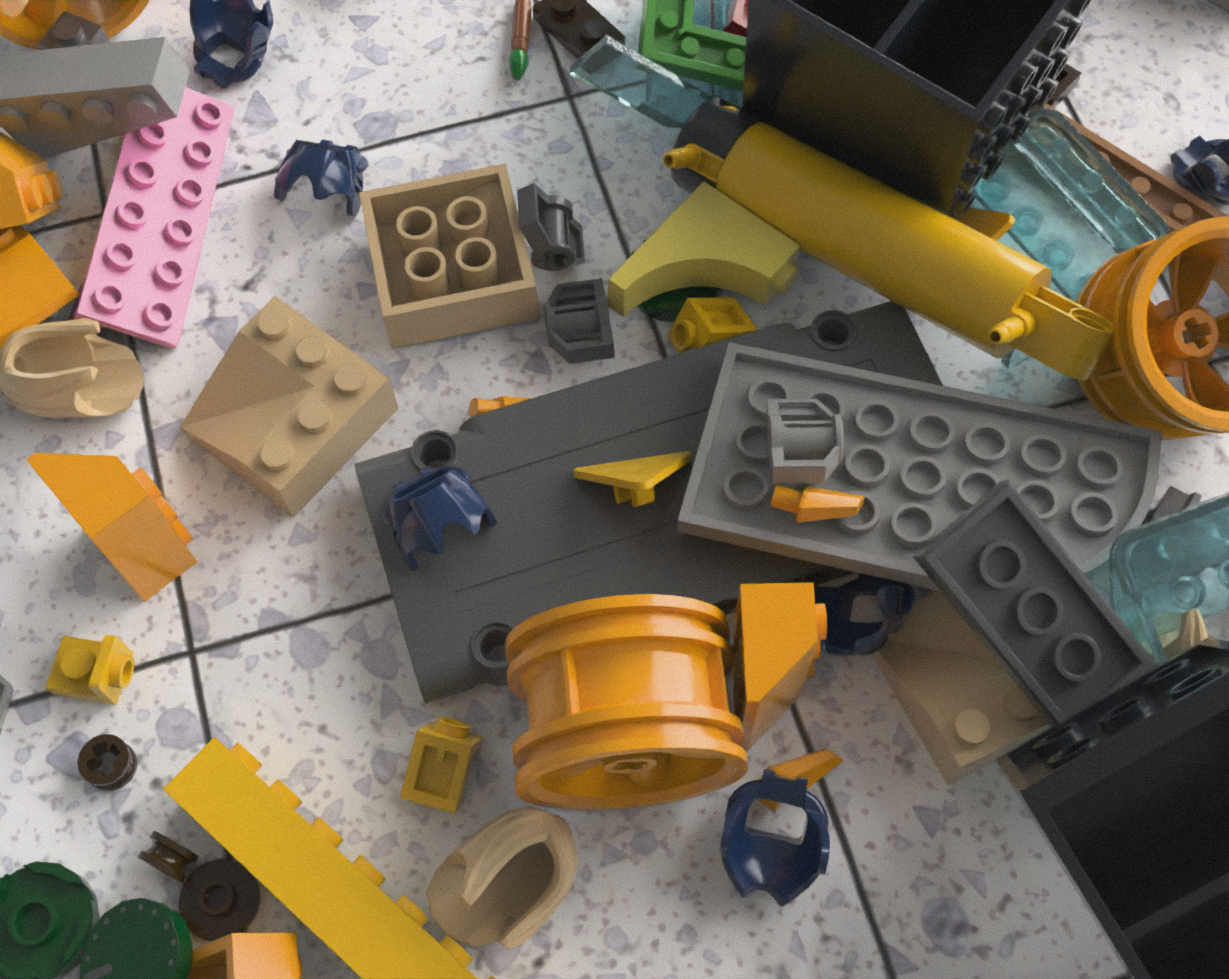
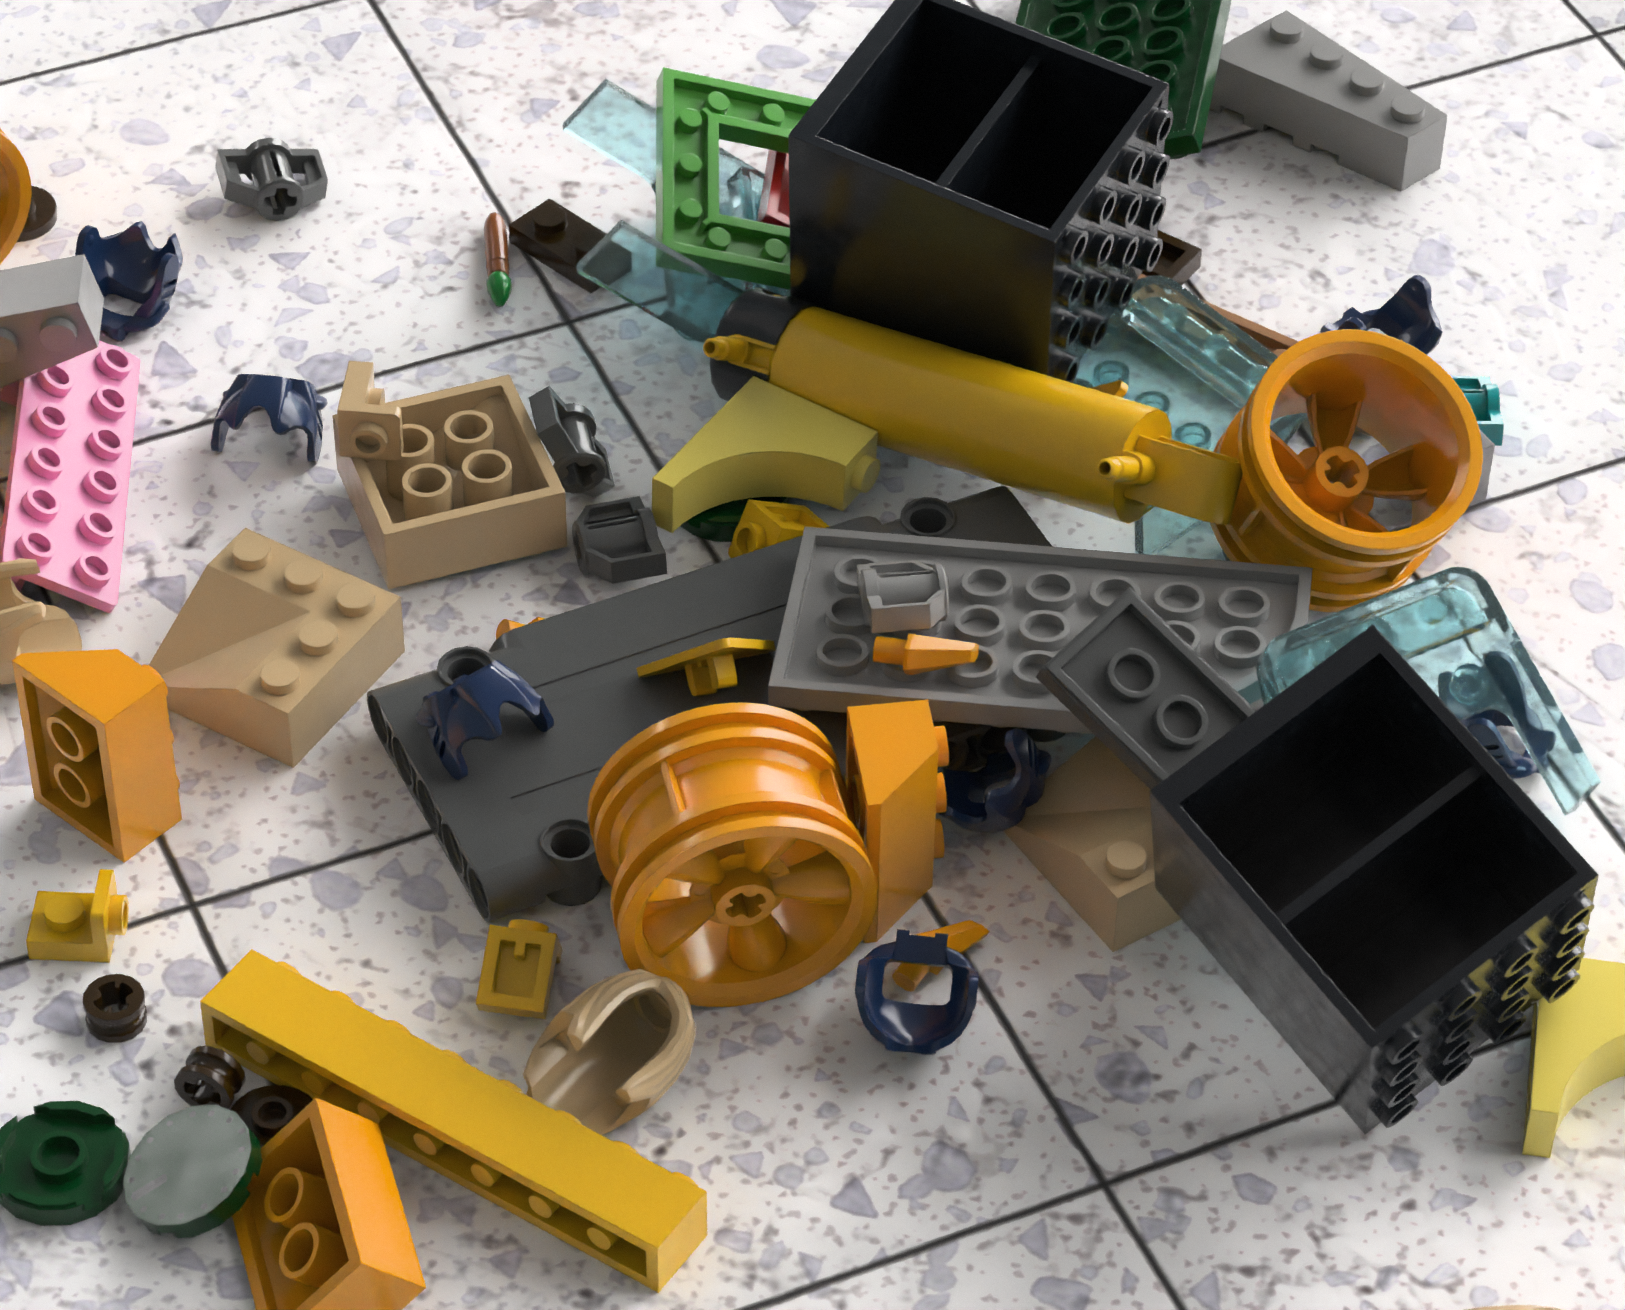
camera: 10 degrees left, 20 degrees down
(375, 203) = (364, 421): none -> tan bracket

